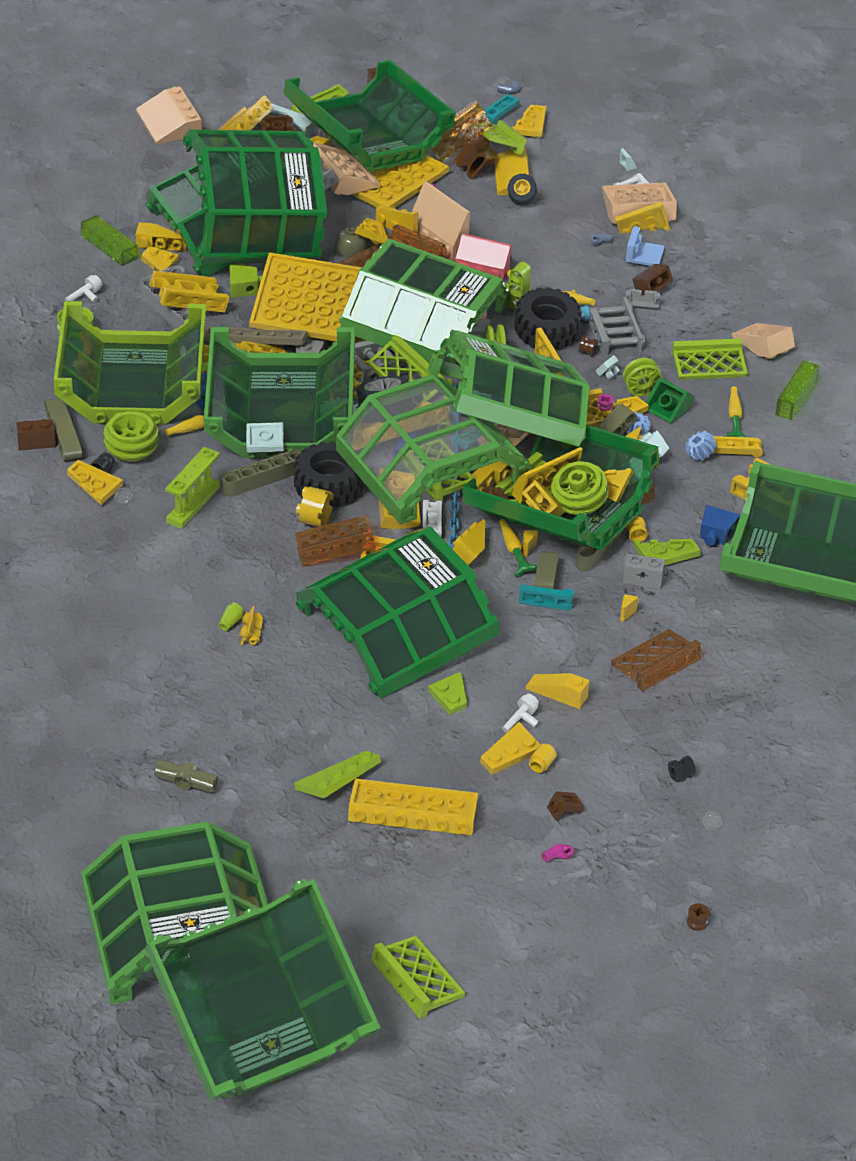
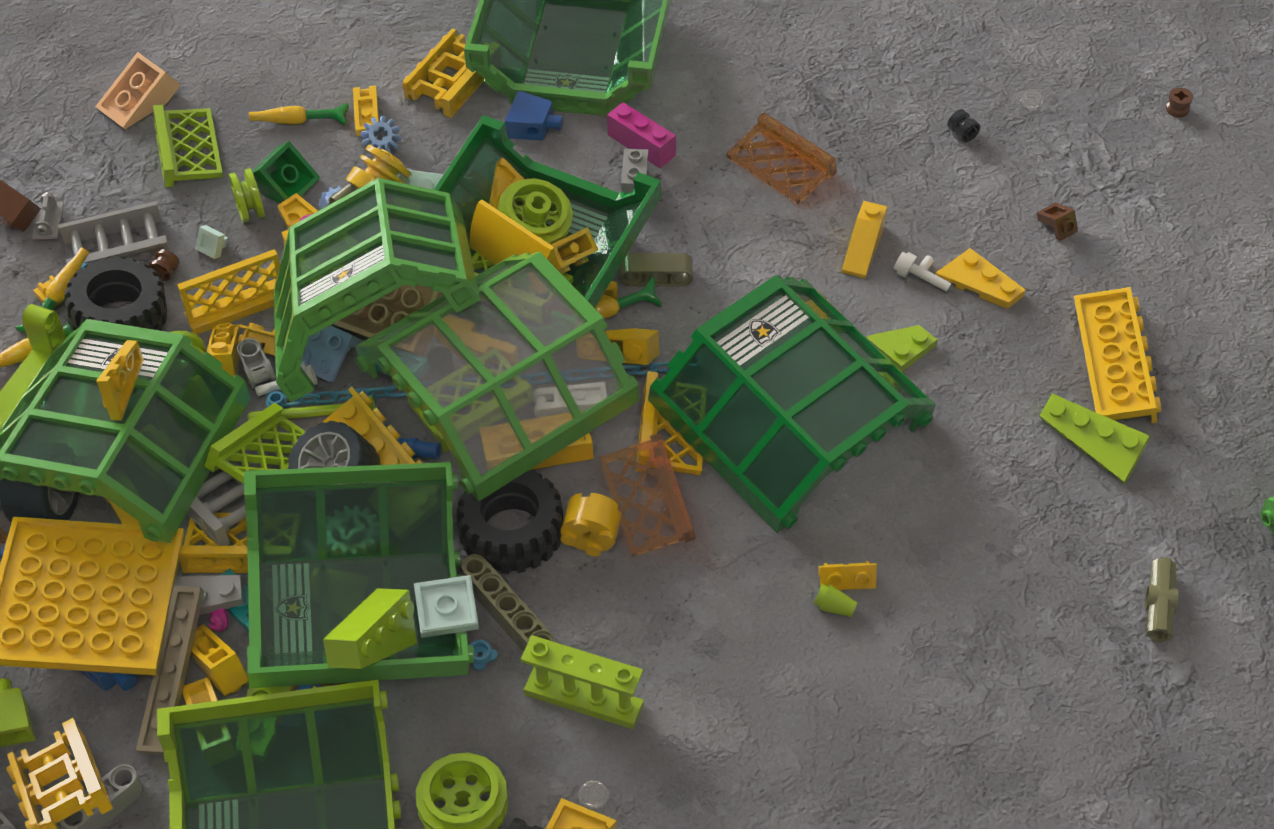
camera: 95 degrees left, 10 degrees up
(192, 424) = (403, 734): yellow piece -> none
(231, 380) = (372, 631): none -> lime wedge
(236, 460) = (482, 647): none -> dark azure plate
(431, 275) = (120, 378): none -> yellow wing
(542, 758) = (991, 244): yellow brick -> none
(546, 597) = (703, 263): teal plate -> none
(558, 851) = (1129, 221): dark pink arm -> none
(628, 607) = (705, 188): yellow slope -> none
(632, 419) = (381, 166): none -> yellow wheel
(672, 551) = (588, 160): lime wing -> none
(689, 580) = (640, 132): none -> dark pink brick
(797, 390) = (249, 57): clear neon green brick -> none

